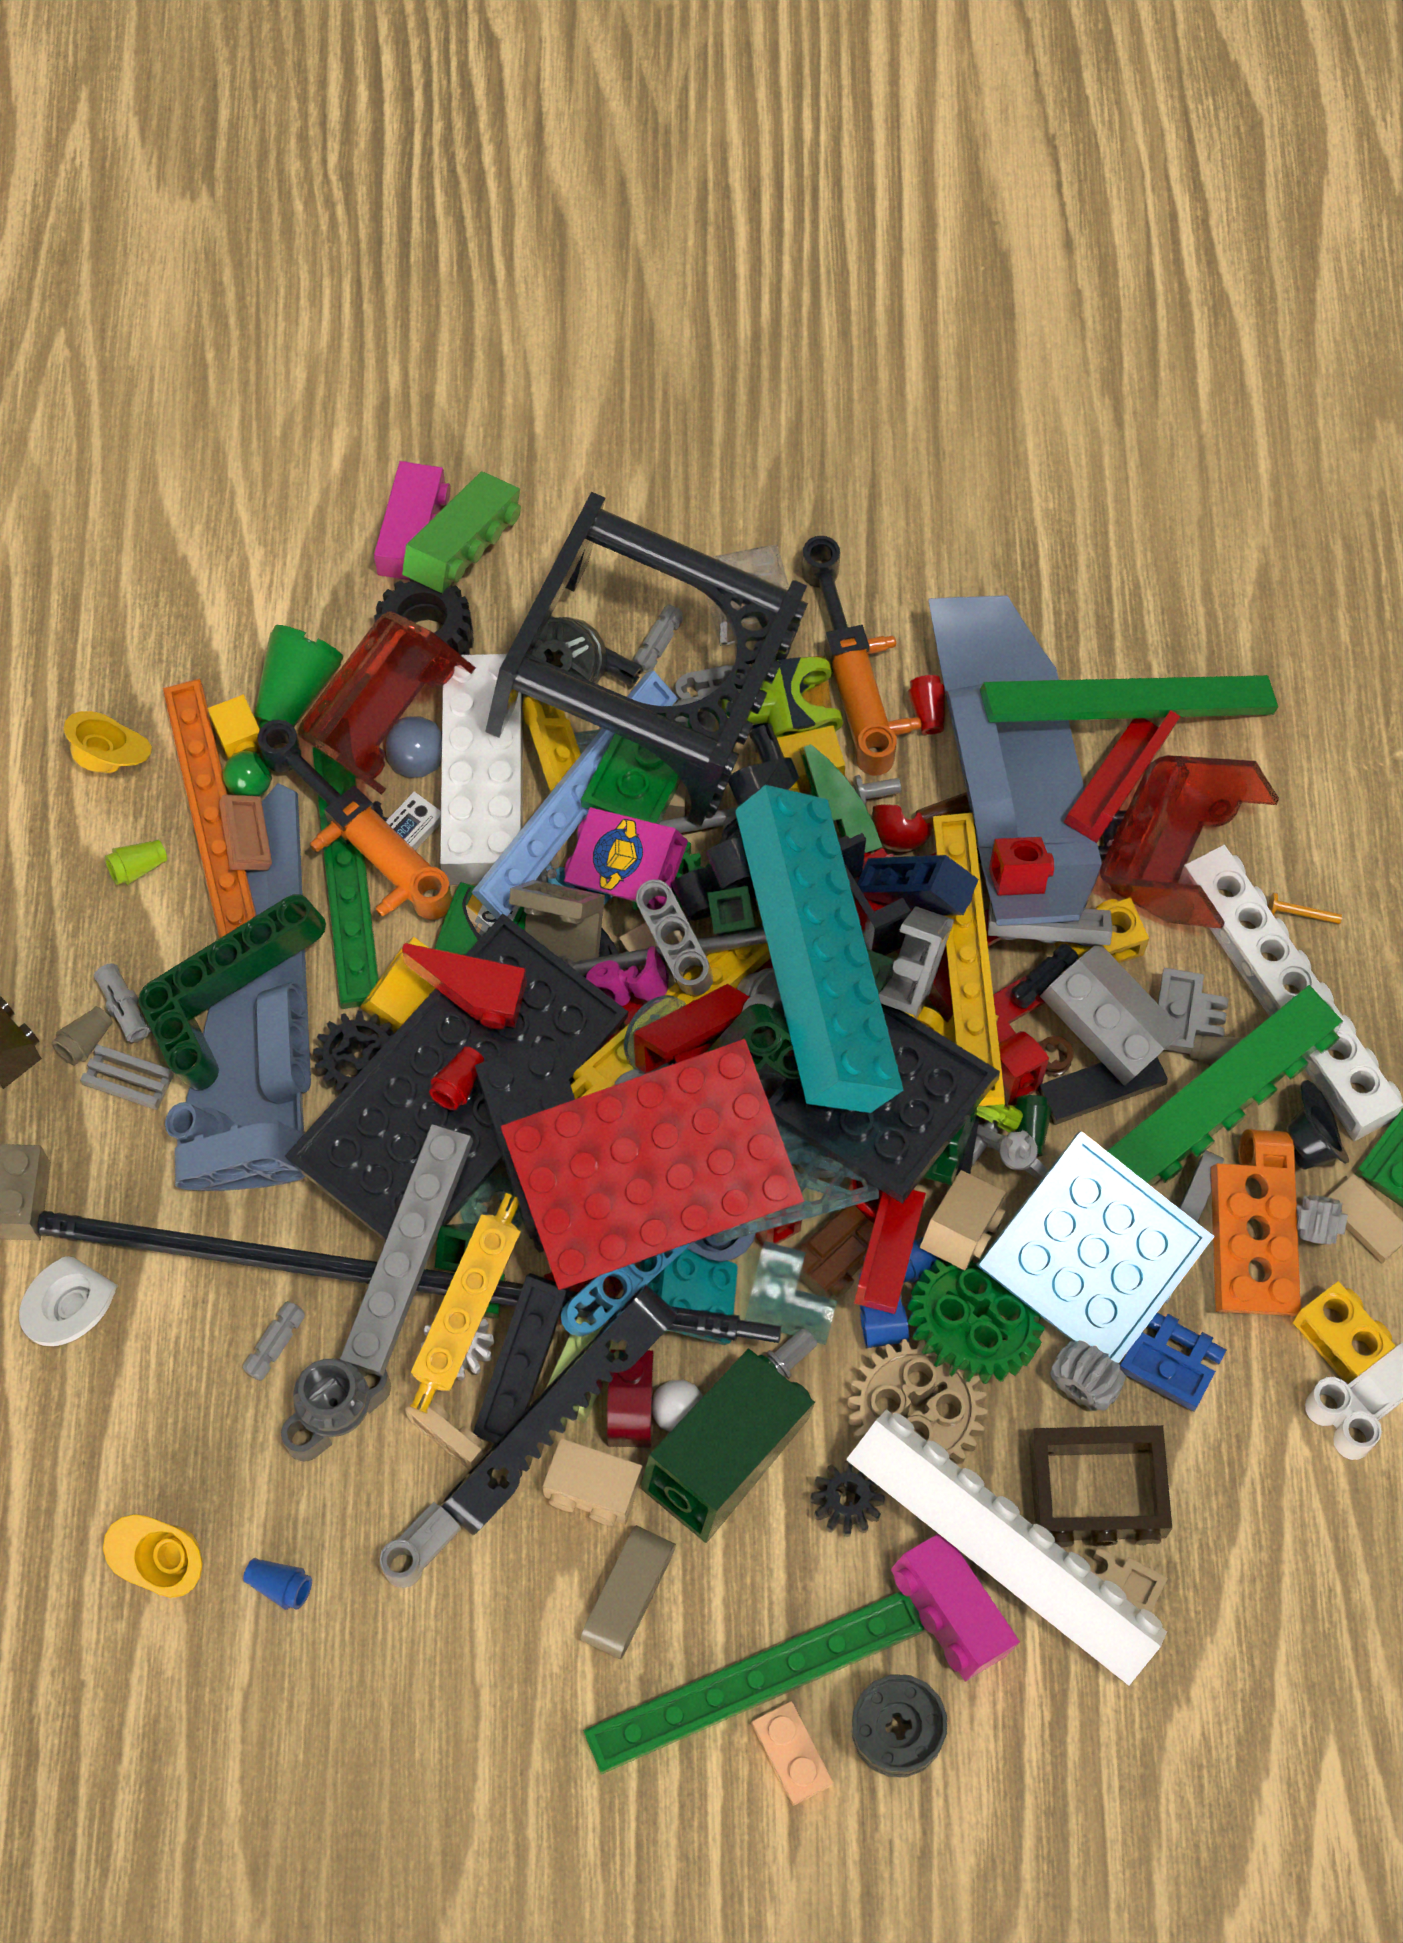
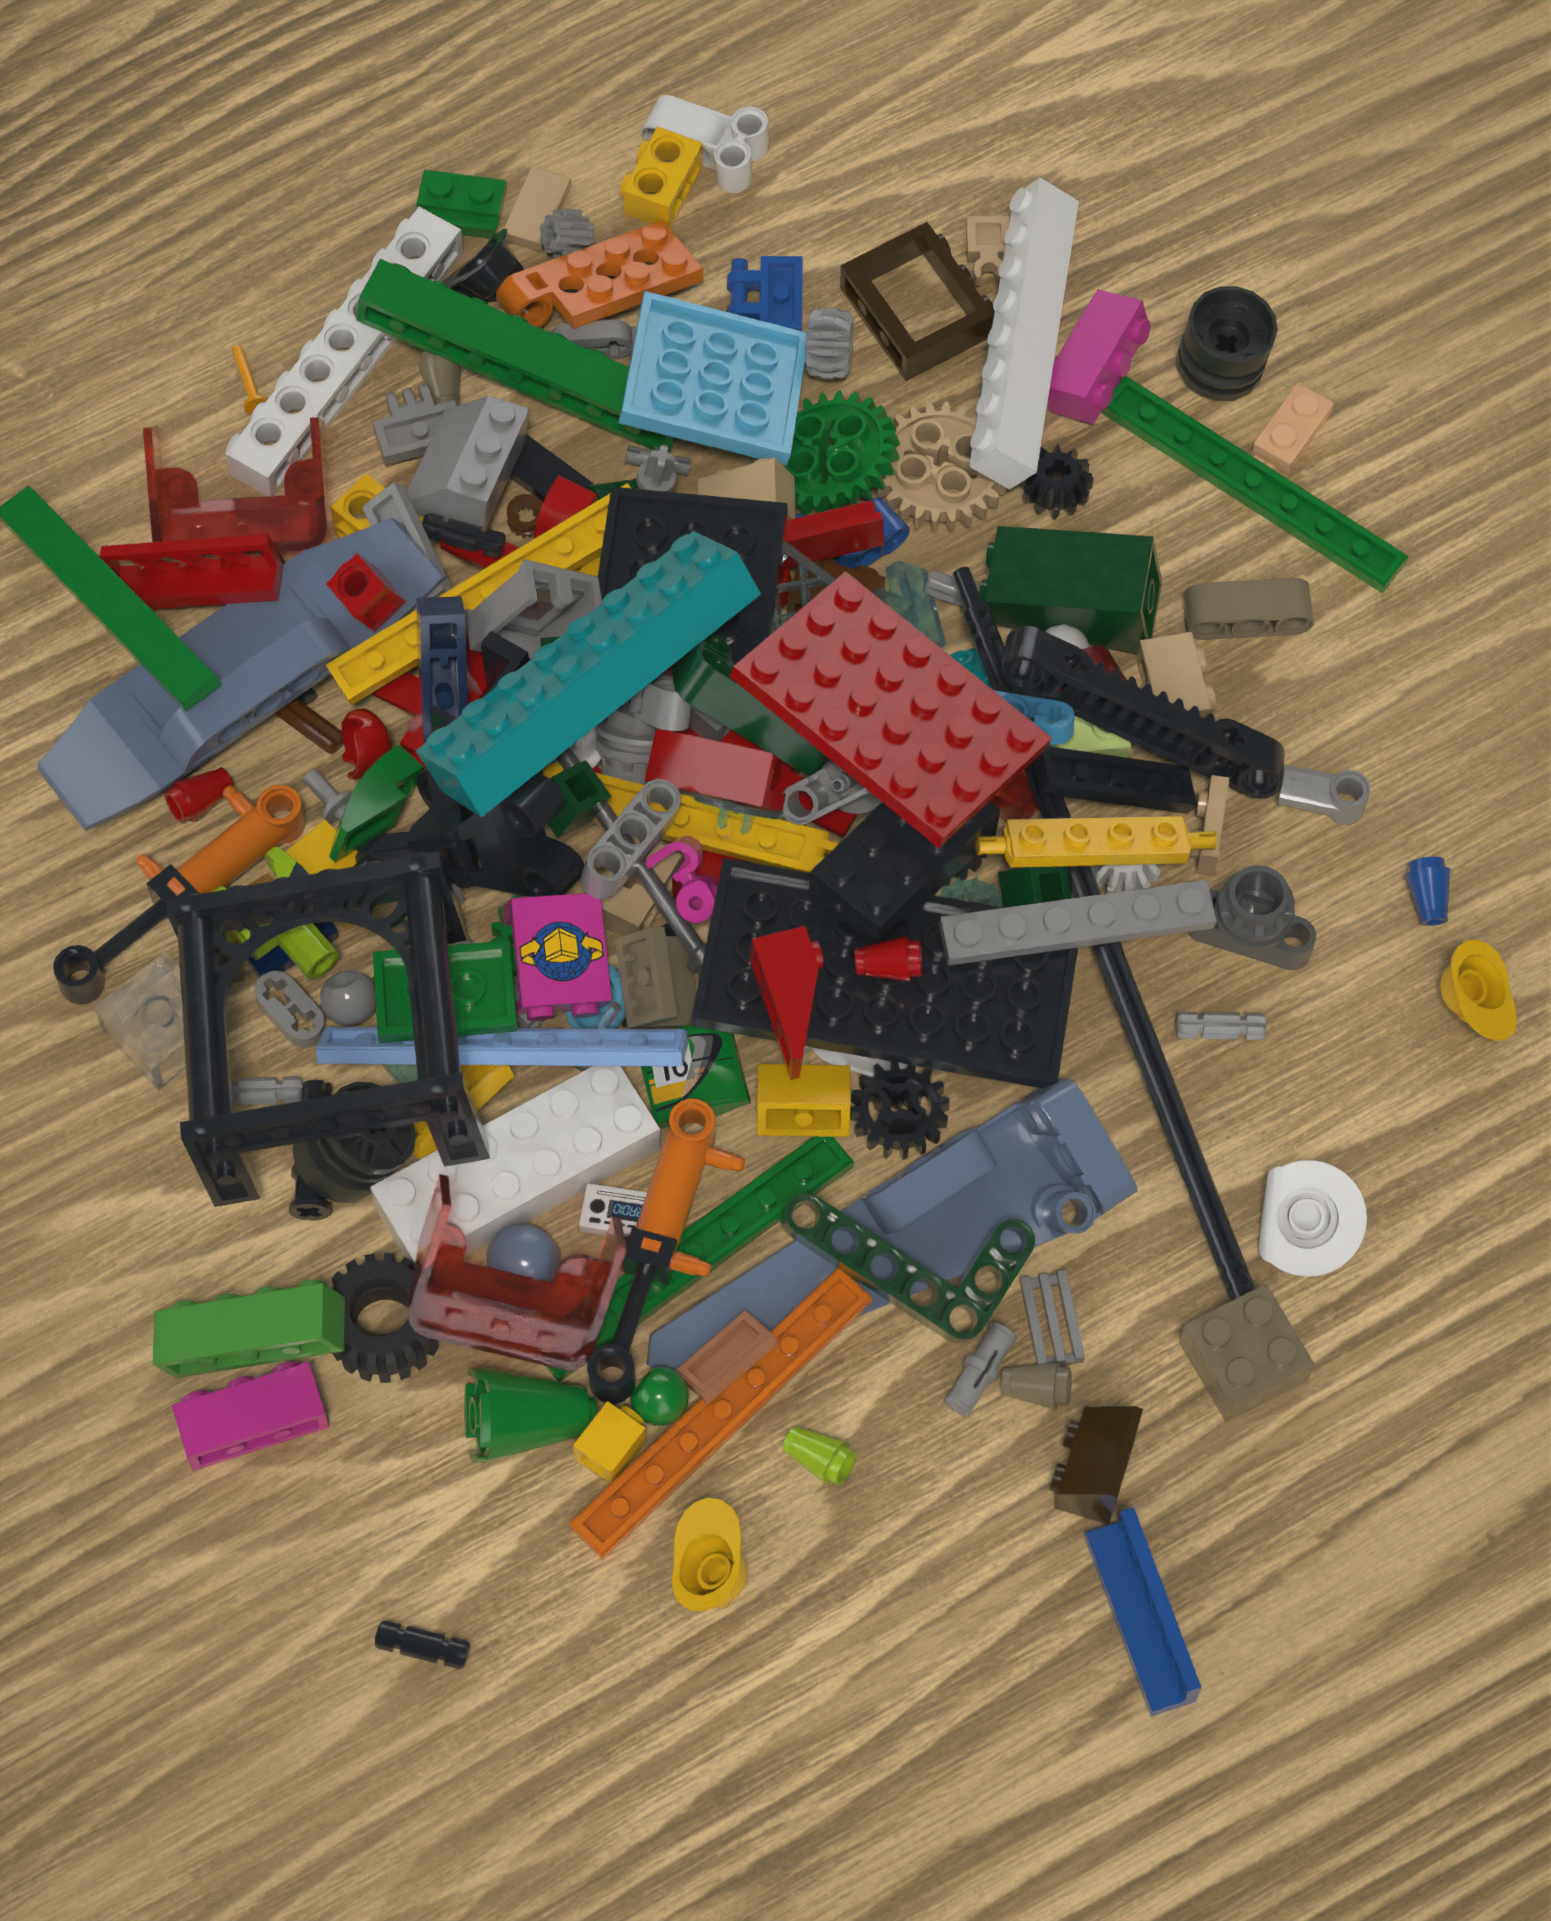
camera: 120 degrees left, 0 degrees up
(181, 554) = (422, 1644): none -> black axle

